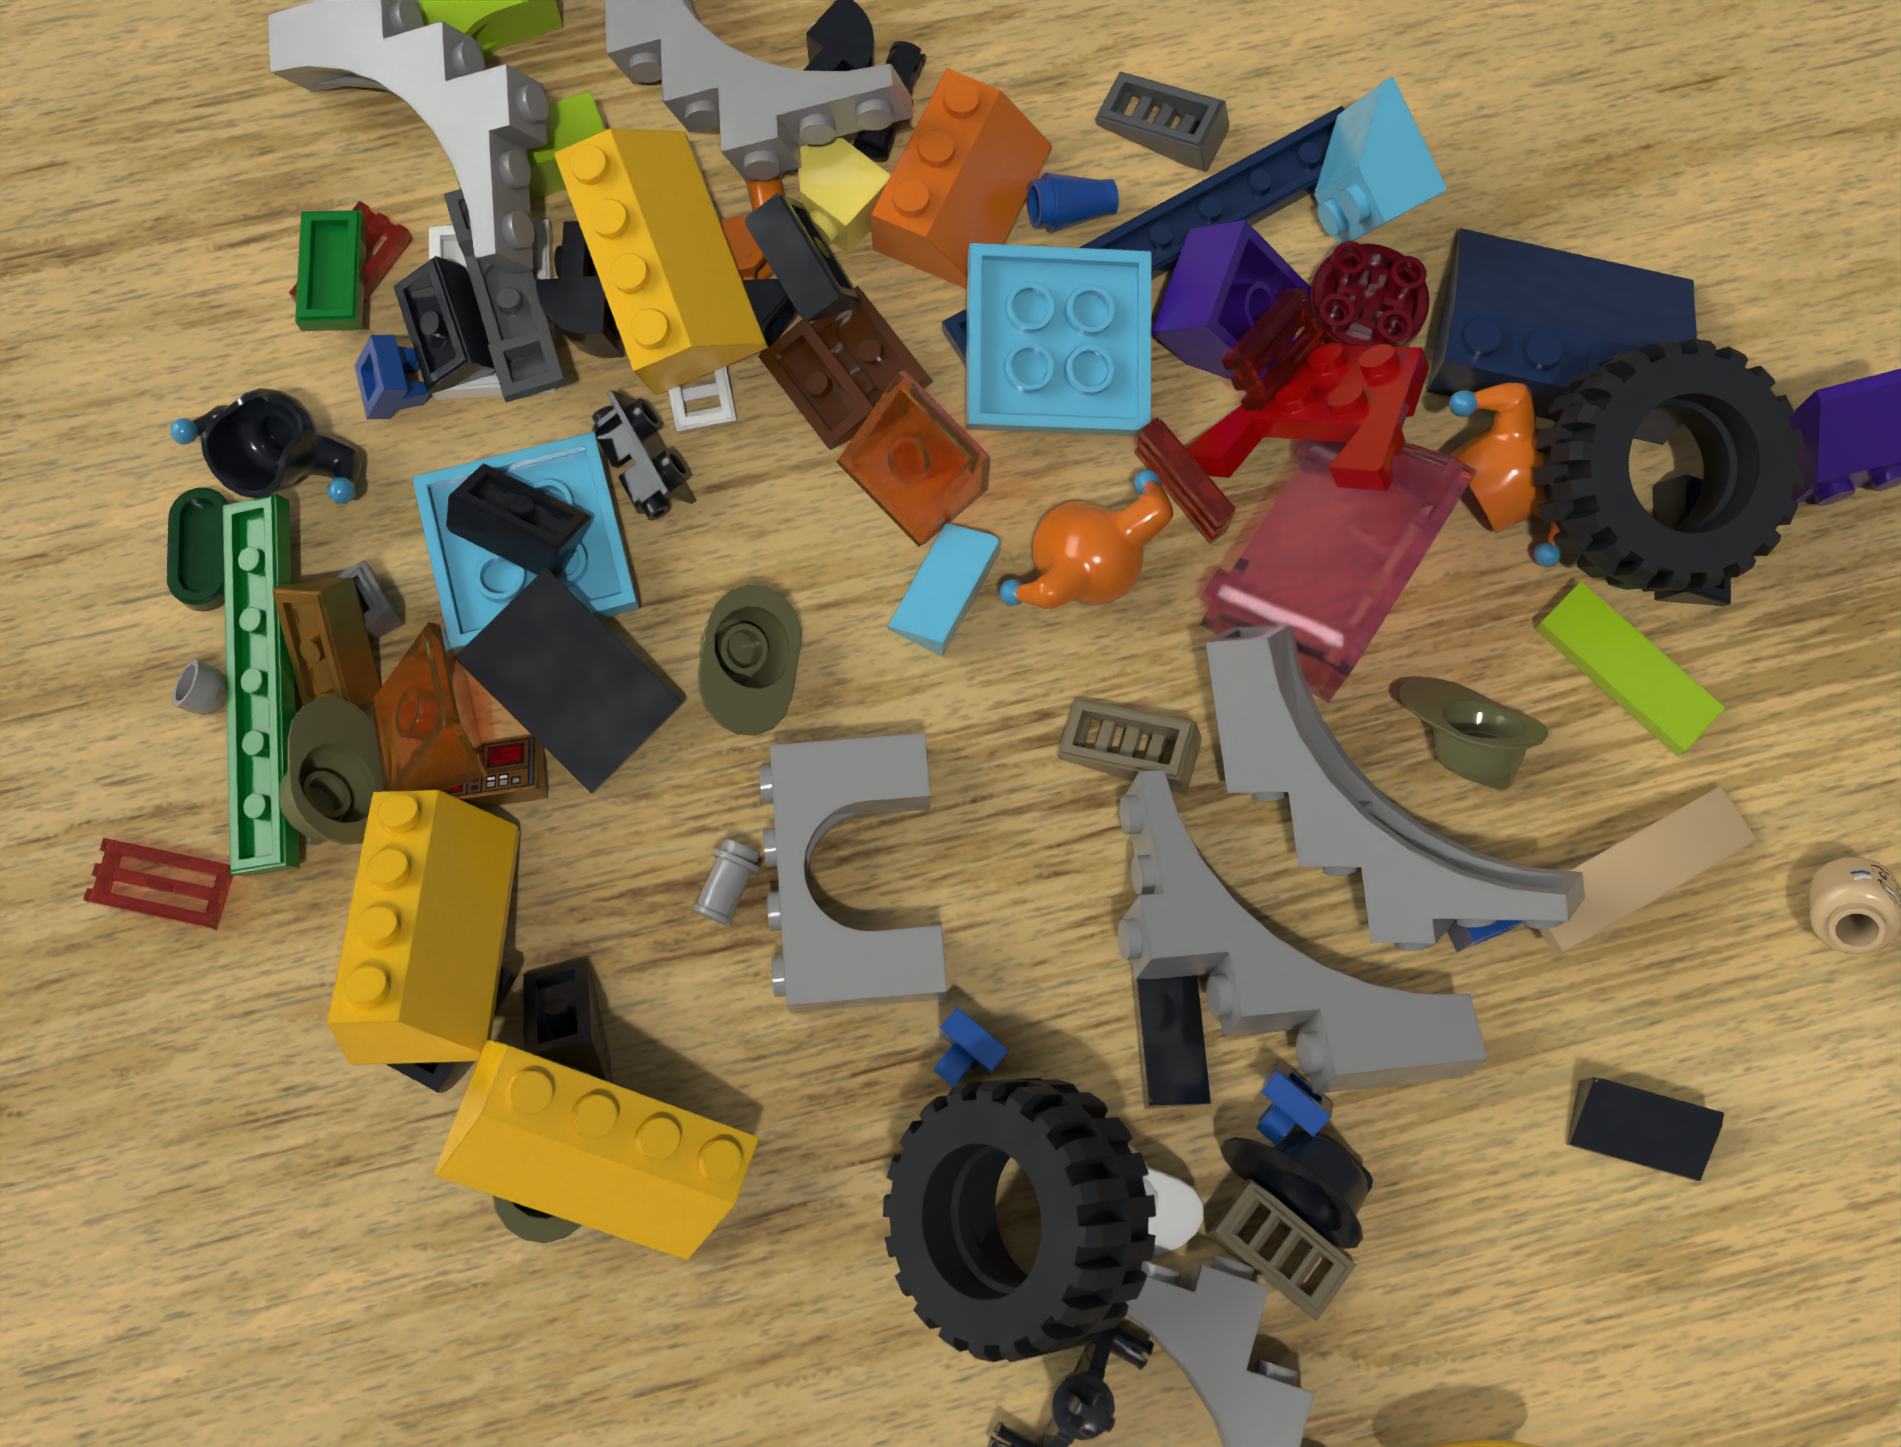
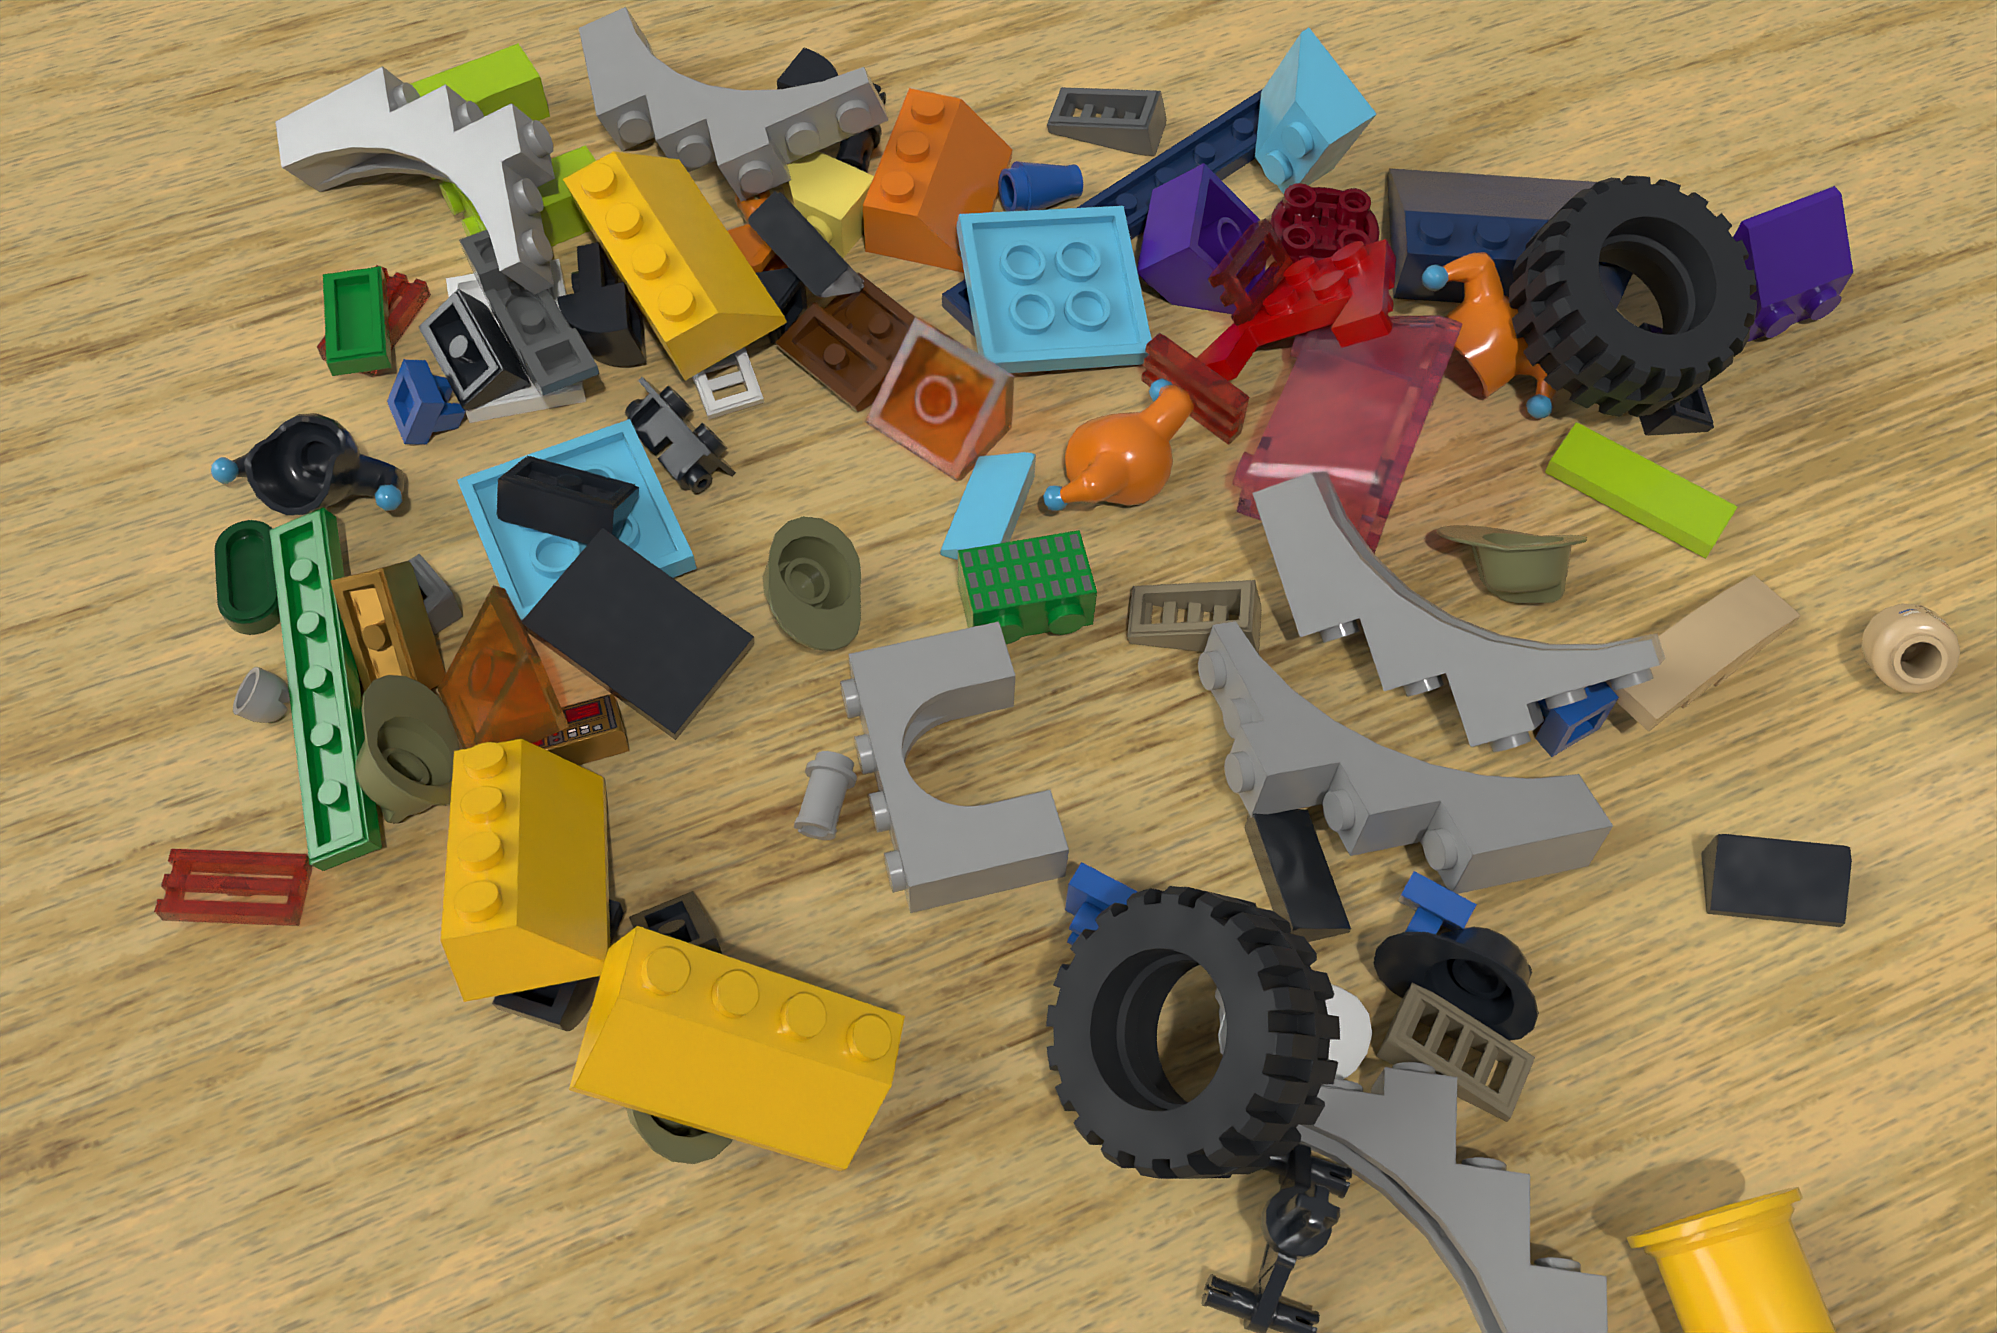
camera: 10 degrees left, 15 degrees down
(964, 690) = (1028, 585): none -> green brick

